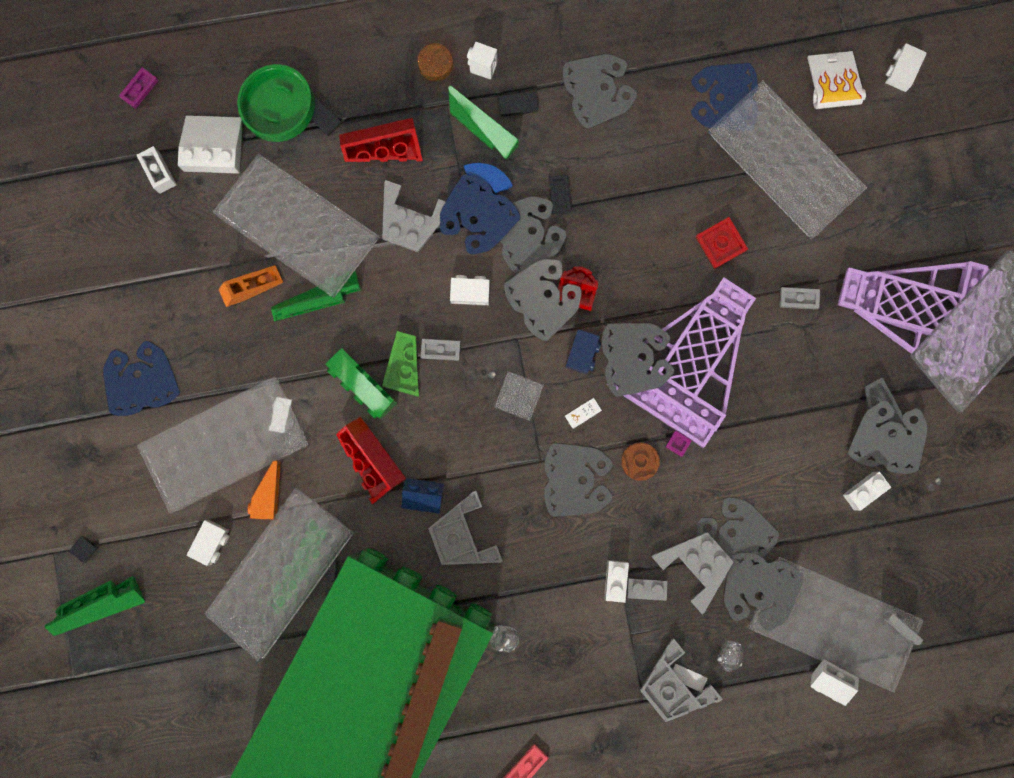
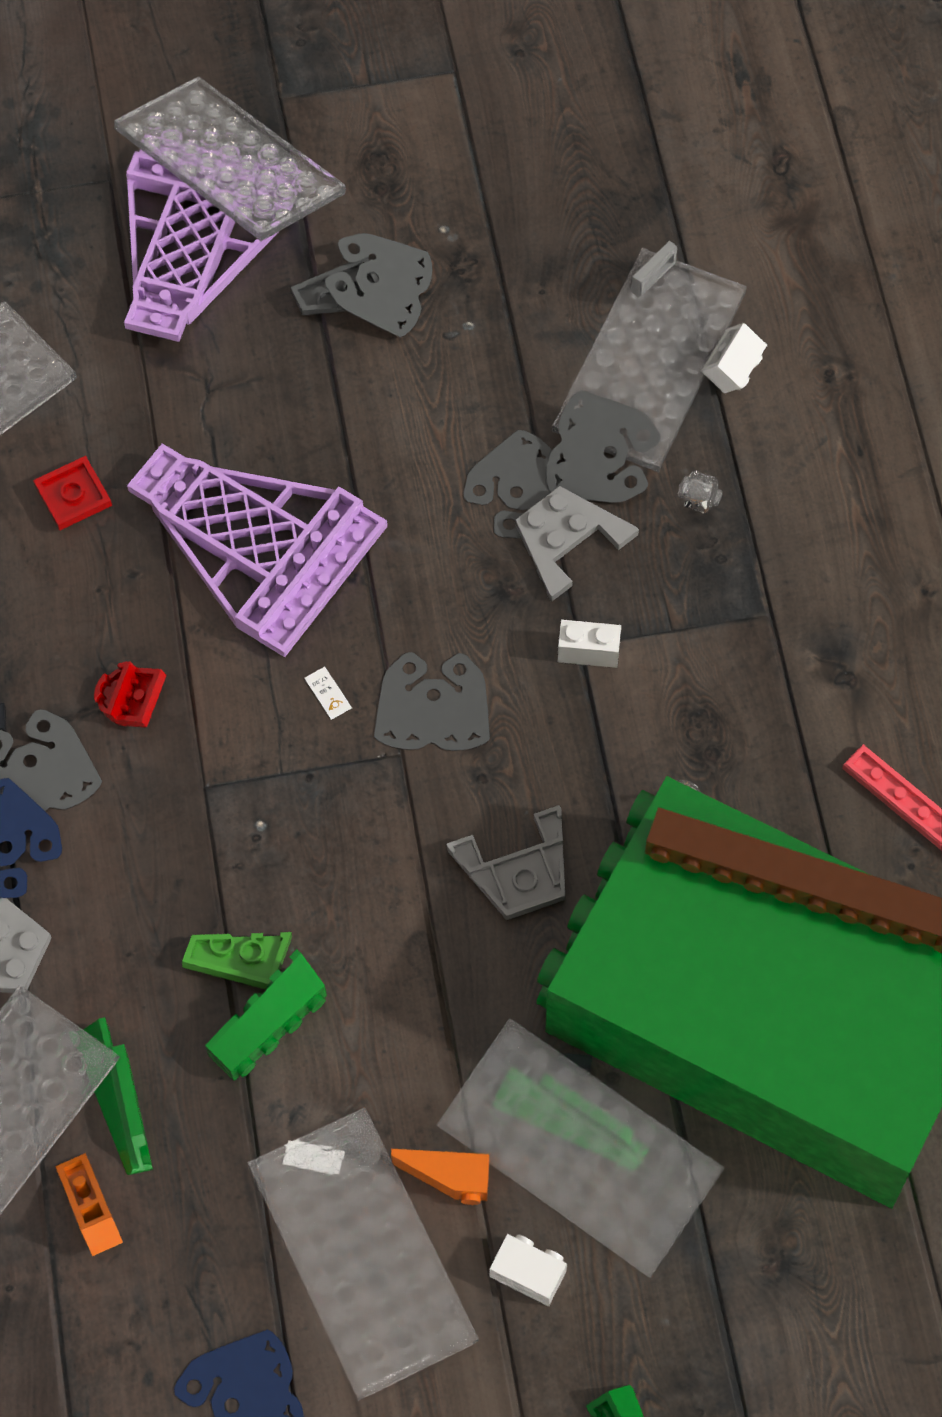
camera: 90 degrees left, 20 degrees down
(370, 459) = (395, 1004): red wedge -> none
(422, 495) = (453, 921): dark blue brick -> none
(440, 349) = (216, 898): light grey plate -> none
(469, 290) = (122, 851): white brick -> none
(518, 396) = (297, 781): clear plate -> none
(534, 305) = (152, 755): dark grey piece -> none
(582, 352) = (231, 687): dark blue brick -> none
(624, 359) = (249, 622): dark grey piece -> none
(640, 461) = (406, 612): dark orange tile -> none
(647, 589) = (602, 599): light grey plate -> none
(669, 693) = (754, 578): light grey wing -> none
(678, 443) = (380, 557): magenta plate -> none
(690, 678) = (734, 553): white sticker -> none
(799, 298) = (165, 392): light grey plate -> none
(866, 491) = (456, 312): white brick -> none

